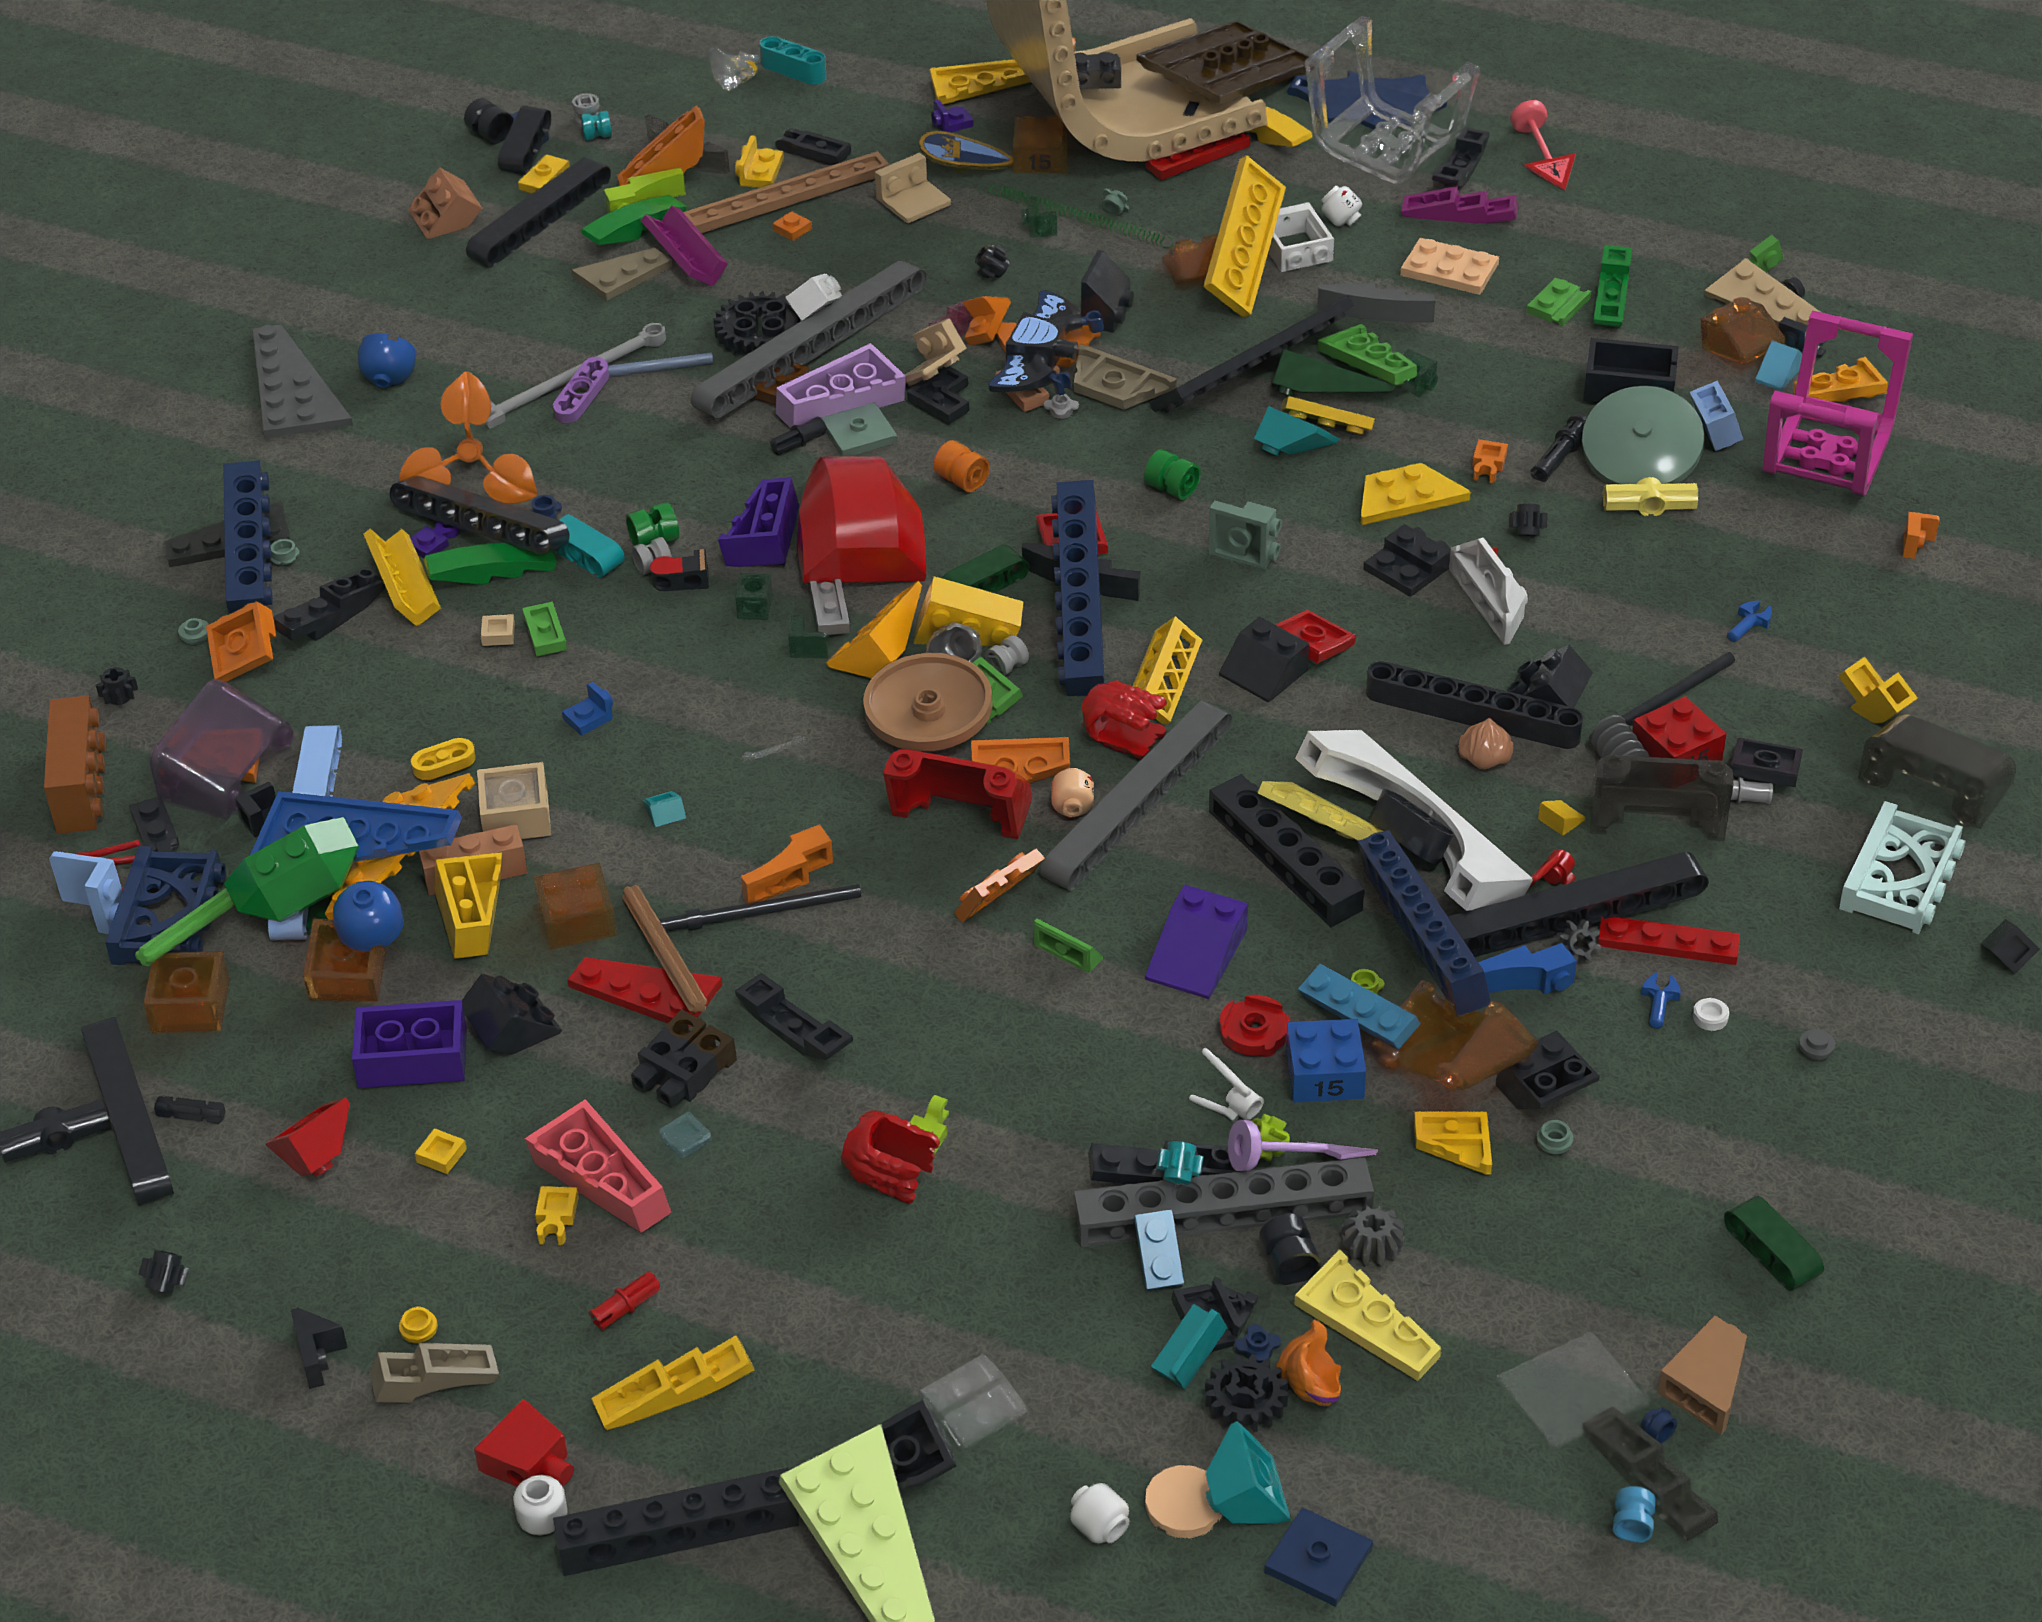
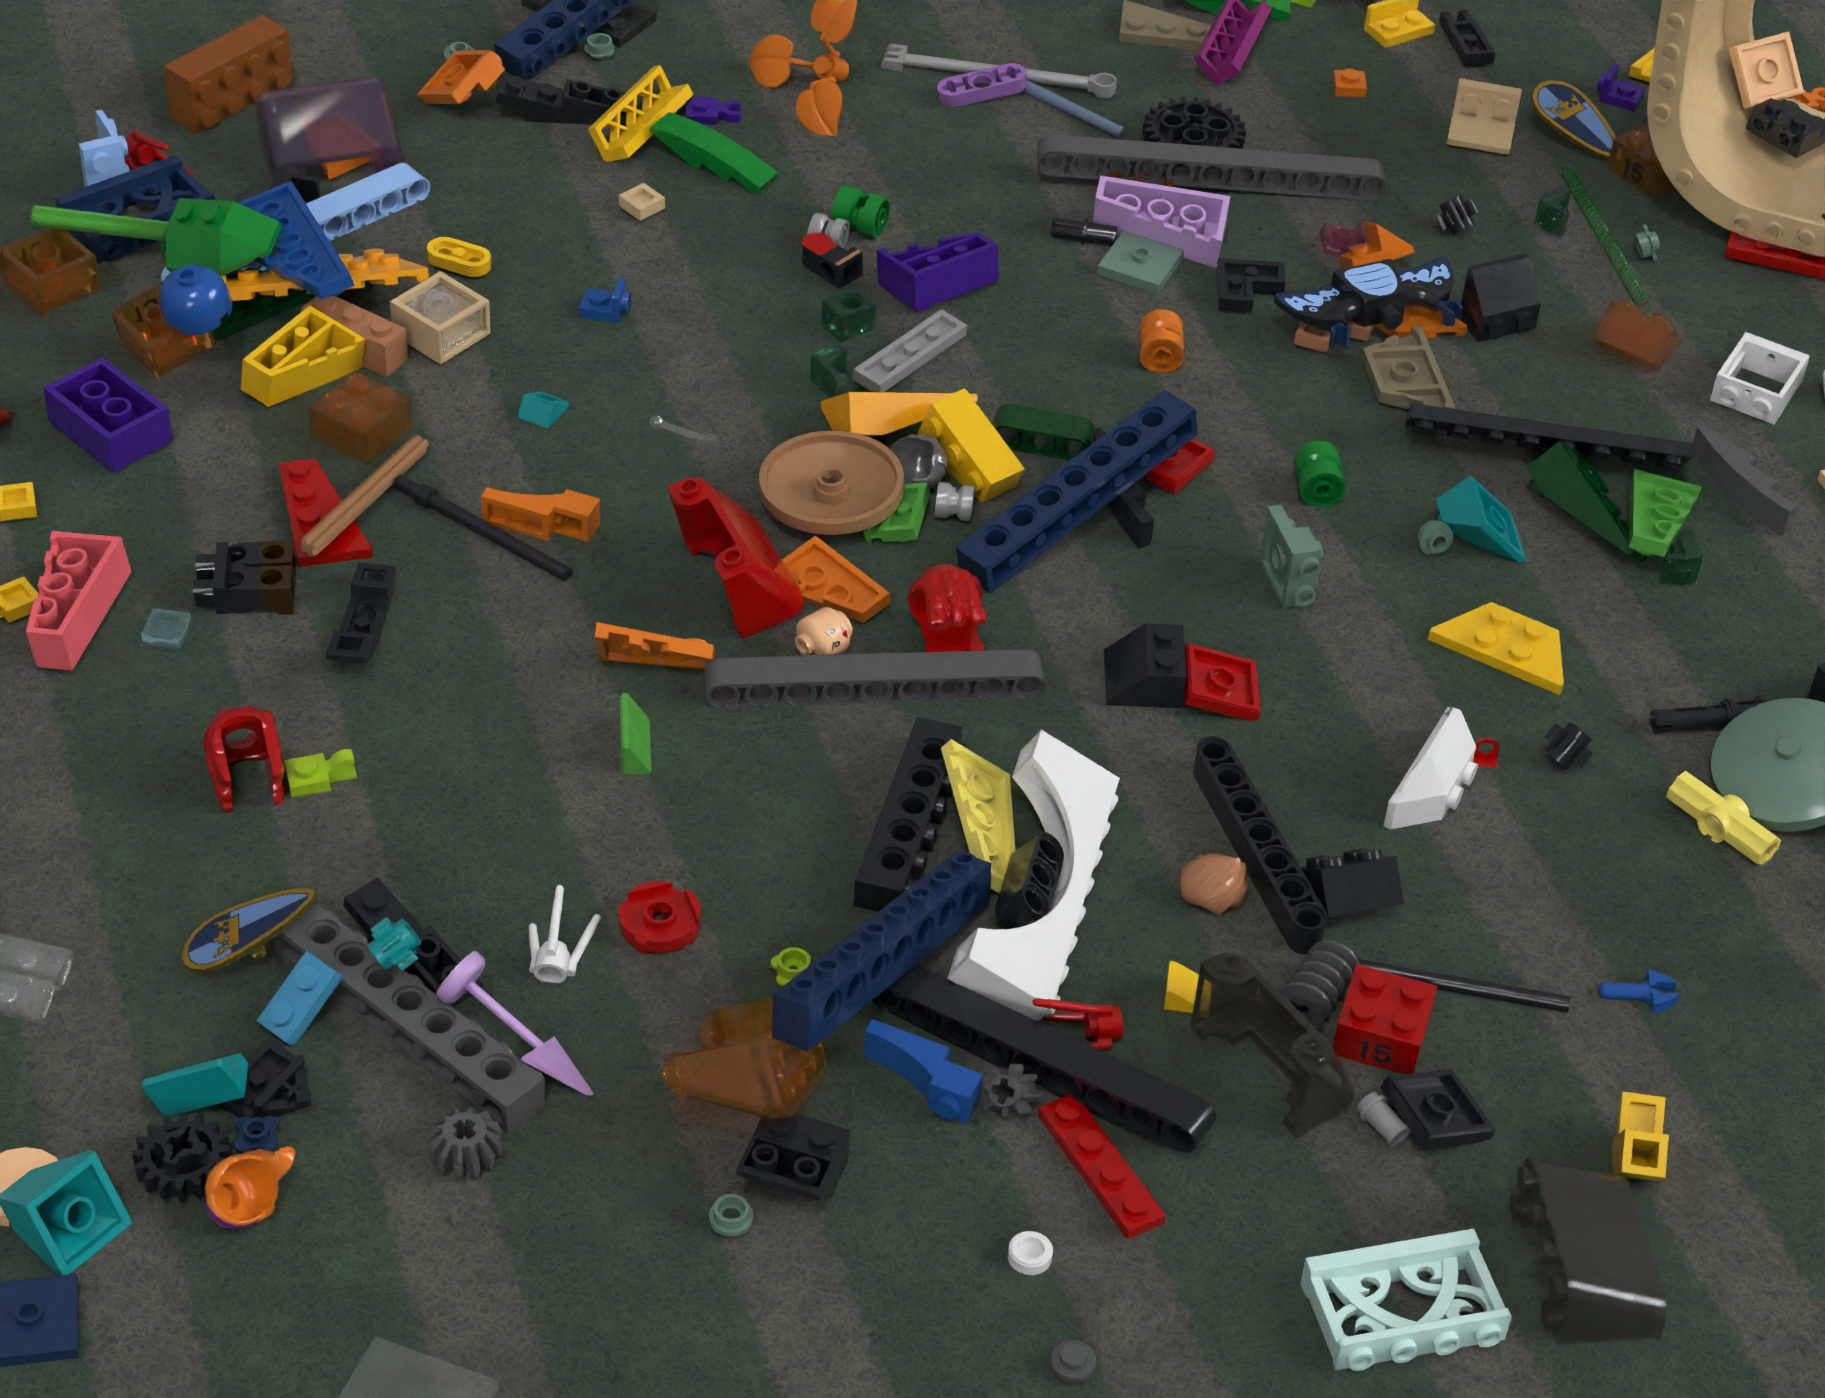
camera: 45 degrees right, 0 degrees up
(116, 686) = (349, 51): black gear -> none
(154, 825) = (223, 159): black hinge -> none
(479, 514) = (753, 113): black beam -> none
(508, 1014) = (202, 452): black slope -> none
(544, 629) = (672, 225): bright green plate -> none
(546, 506) = (817, 146): dark blue plate -> none
(590, 548) = (795, 190): teal beam -> none
(786, 192) = (1376, 53): medium nougat plate -> none
(814, 295) = (1252, 132): white brick -> none
(859, 524) = (1002, 317): red windscreen -> none
(940, 348) = (1290, 234): tan bracket -> none
(1061, 406) = (1329, 360): light grey plate -> none
(1061, 1245) = (244, 929): none -> shield
(1159, 663) = (1047, 603): yellow fence -> none
(1198, 941) = (724, 820): dark purple slope -> none
(1244, 237) = (1687, 336): yellow plate -> none
(1271, 1131) = (518, 996): lime gear -> none
(1282, 462) = (1431, 531): none -> sand green plate
(1290, 1249) = (387, 1090): black wheel -> none
(1325, 1060) = (656, 987): blue brick -> none
(1327, 415) = (1515, 504): yellow wing -> none
(1353, 1001) = (744, 971): dark azure plate -> none
(1358, 1311) = (359, 1192): light yellow wing -> none
(1409, 560) = (1410, 694): black plate -> none
(1455, 1137) = (656, 1139): yellow wing -> none
(1489, 459) = (1629, 672): orange plate -> none
(1660, 998) = (1011, 1199): blue bar -> none

